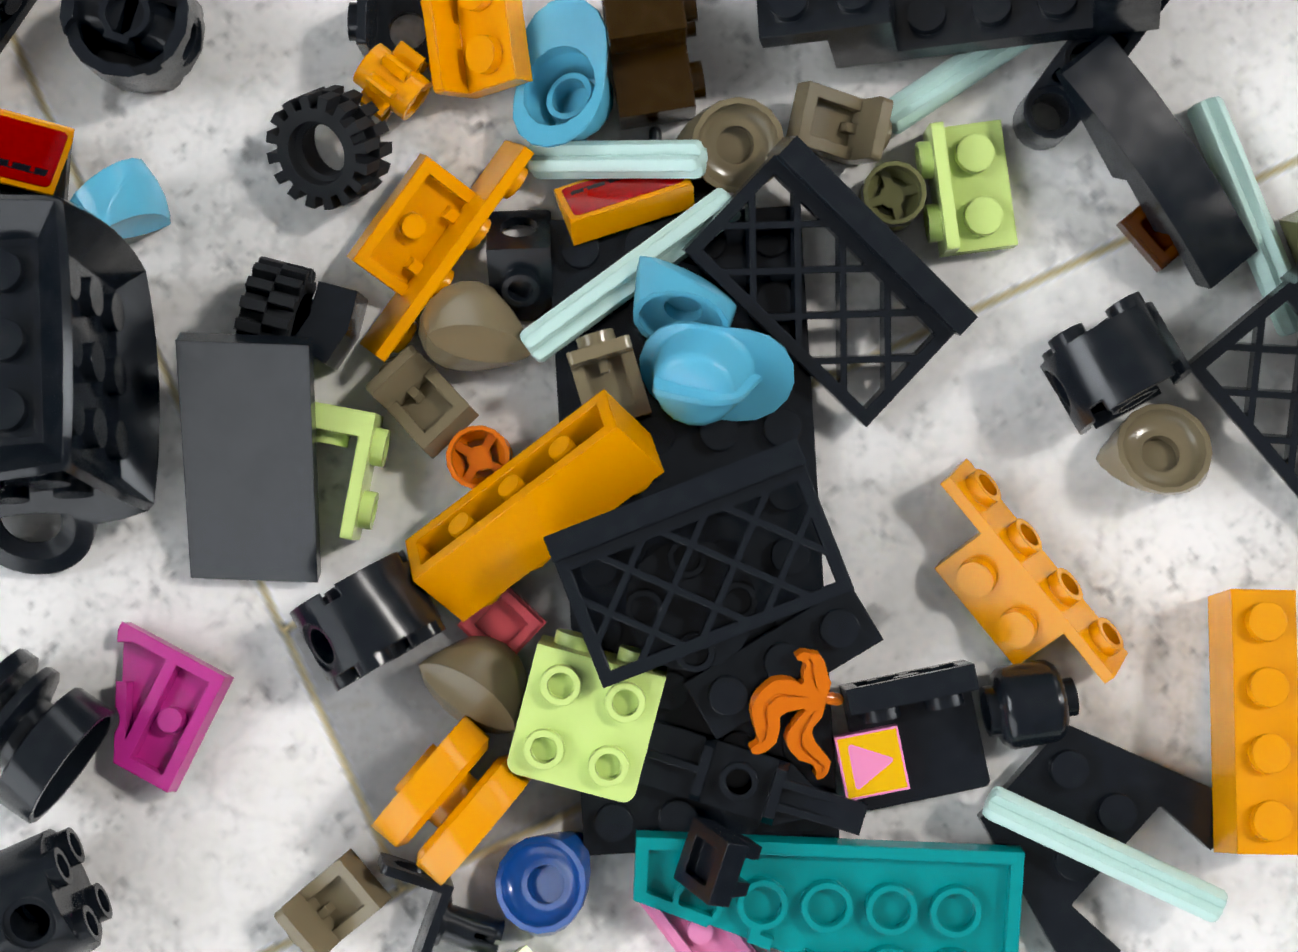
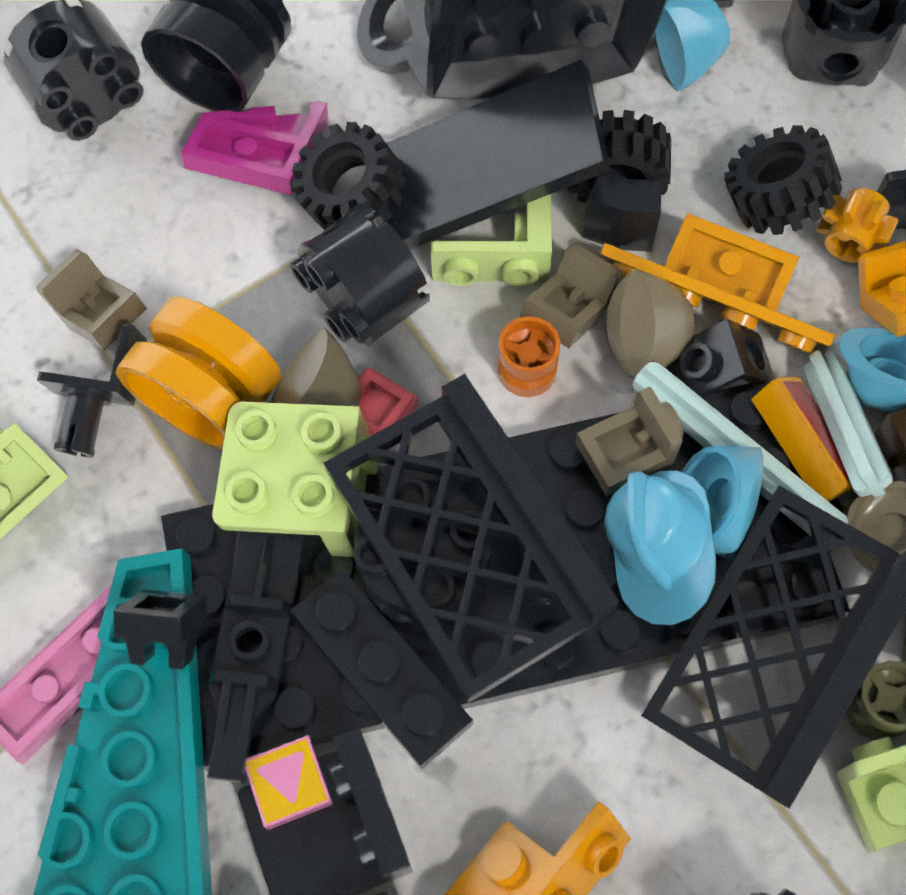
camera: 80 degrees right, 20 degrees down
(215, 641) = (336, 156): none -> black tyre
(544, 882) = (131, 479): blue piece -> none
(560, 480) = (547, 424): light orange brick -> none
(786, 694) = (346, 669): orange piece -> none

